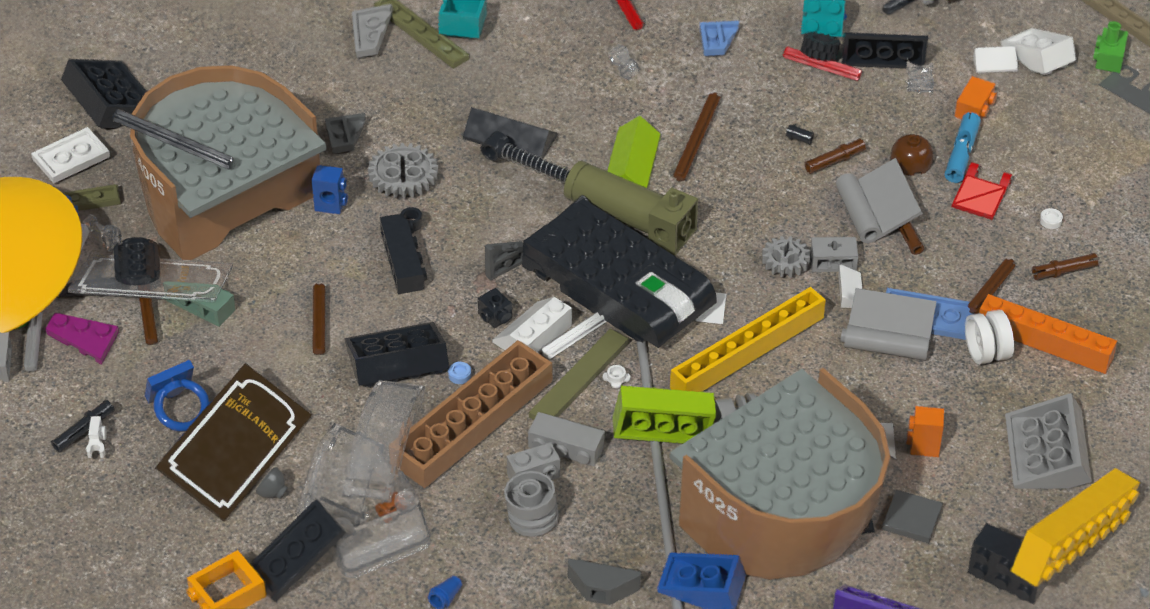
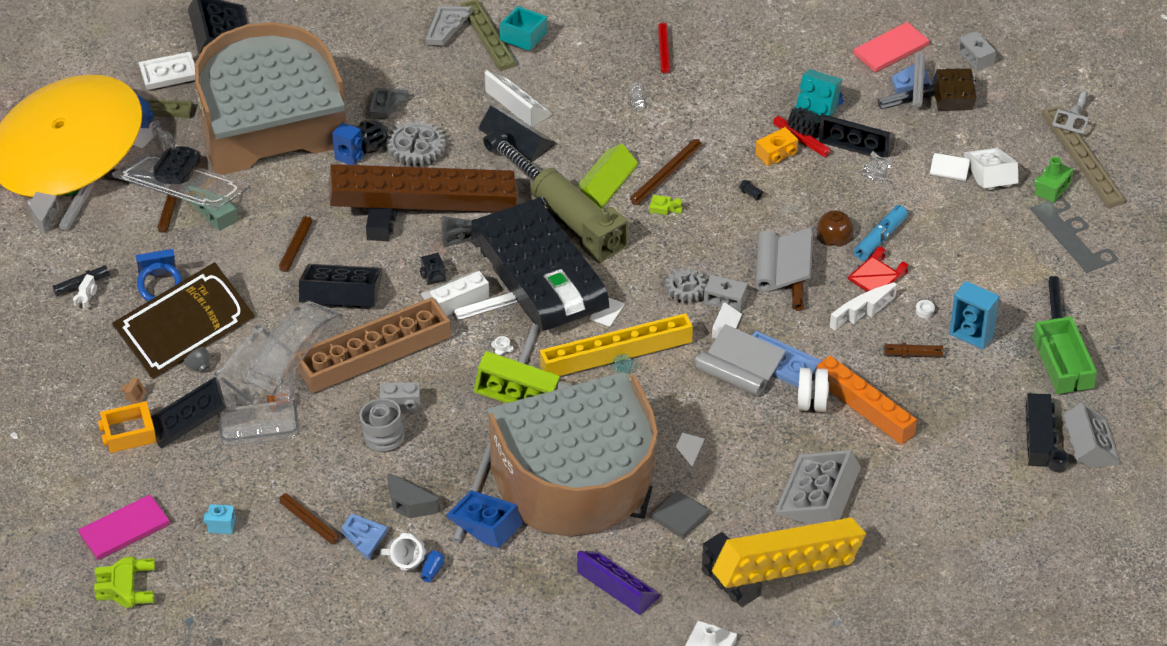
camera: 20 degrees right, 0 degrees up
(88, 336) = (116, 213): magenta wing -> none
(173, 139) = (225, 74): black axle -> none
(212, 543) = (134, 391): none -> medium nougat tile
(354, 171) = (372, 134): none -> black helmet
(441, 219) = (421, 188): none -> reddish brown brick
(444, 593) = (287, 474): blue cone -> none
(459, 372) = (382, 310): light blue tile -> none
(489, 96) = (515, 99): none -> white slope
(568, 438) = (437, 383): light grey brick -> none
(581, 375) = (473, 339): olive tile -> none
(712, 174) = (663, 204): none -> lime plate
(717, 36) = (725, 94): medium blue wing -> none
(766, 365) = (623, 358): none -> clear light blue plate
(803, 81) = (776, 146): none -> light orange brick
(841, 153) = (770, 214): reddish brown pin -> none
(926, 431) = (720, 450): orange brick -> none
(976, 98) = (913, 195): orange brick -> none
(988, 229) = (866, 303): none -> white slope
(991, 285) = (844, 348): reddish brown axle -> none
(1117, 211) = (974, 315): none -> dark azure brick

